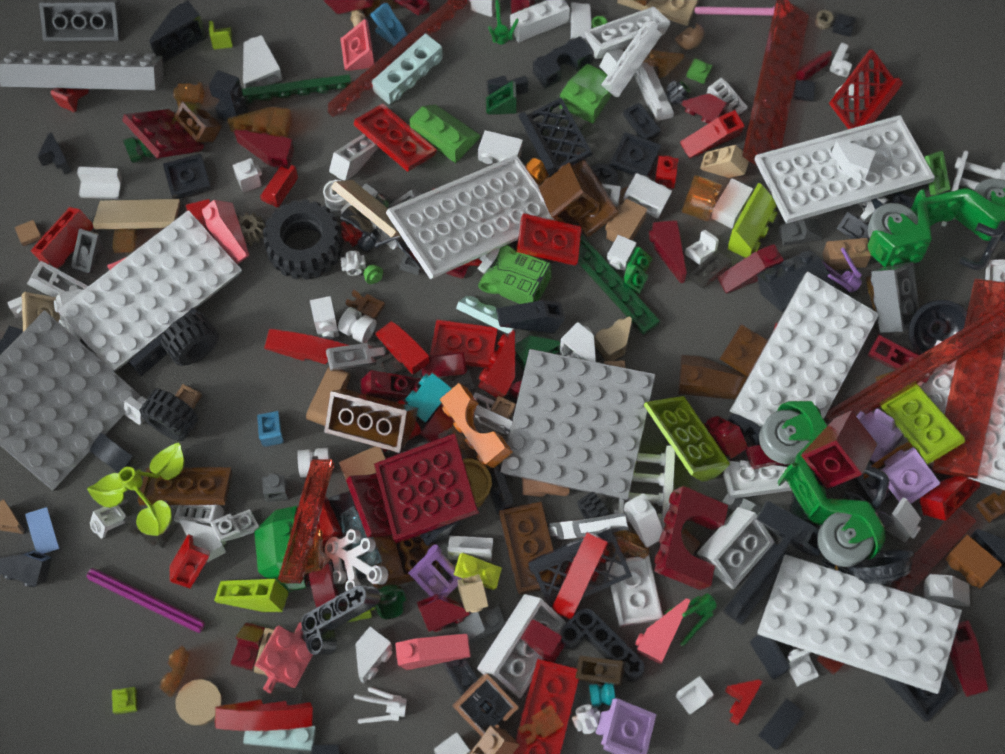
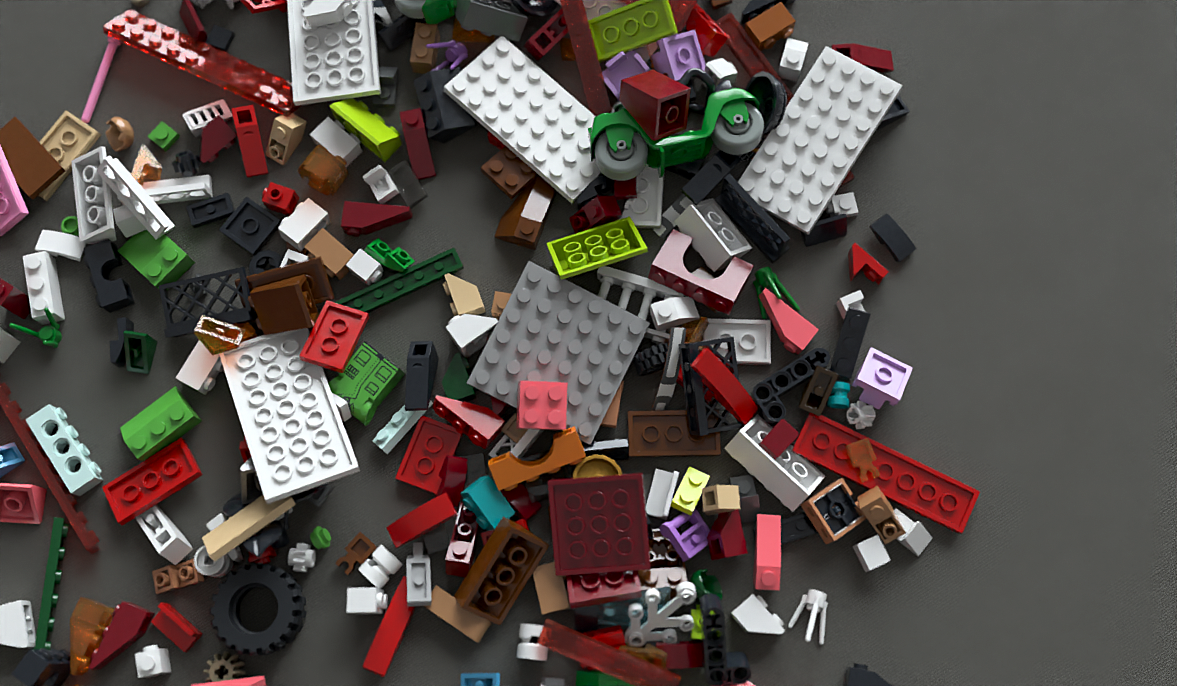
camera: 75 degrees left, 10 degrees up
(319, 174) = (176, 576): none -> nougat slope
(522, 414) = (541, 405): none -> coral brick
(527, 148) = (218, 335): none -> clear orange slope
(658, 694) = (849, 342): none -> black plate

